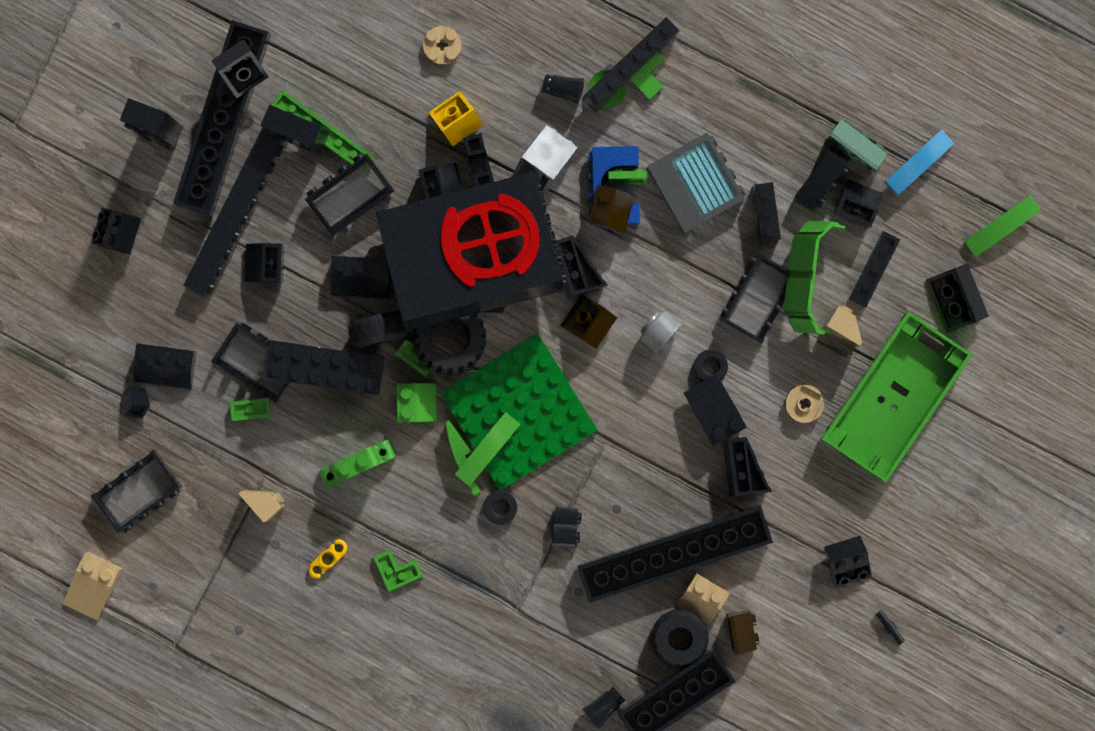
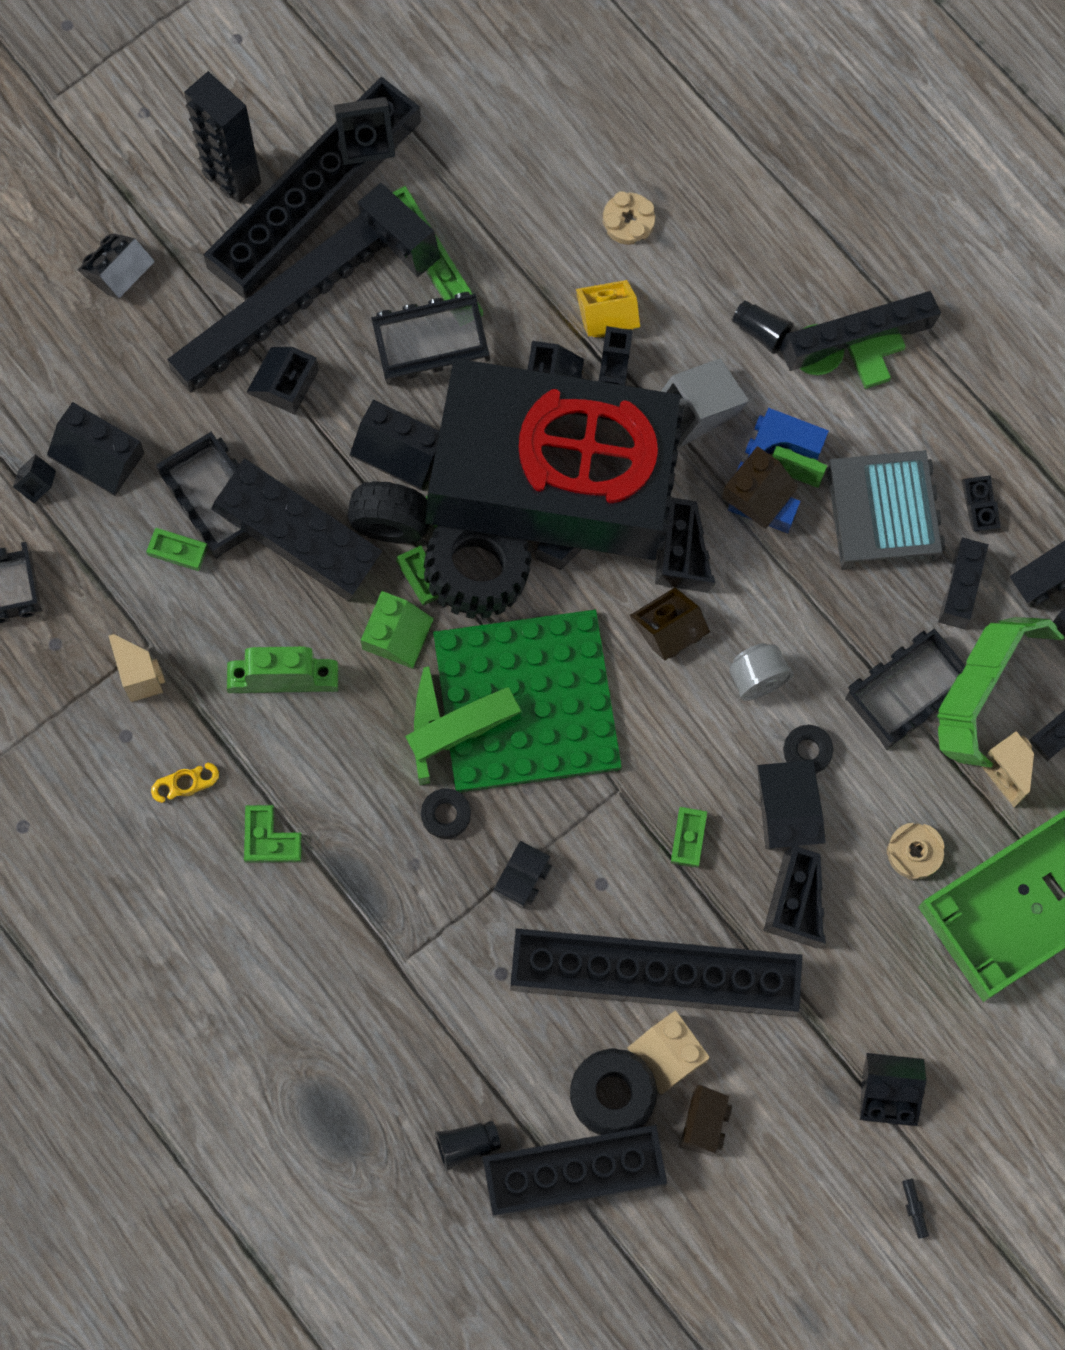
camera: 25 degrees right, 15 degrees down
(659, 457) = (688, 837): none -> bright green plate
(756, 149) = (980, 503): none -> black slope

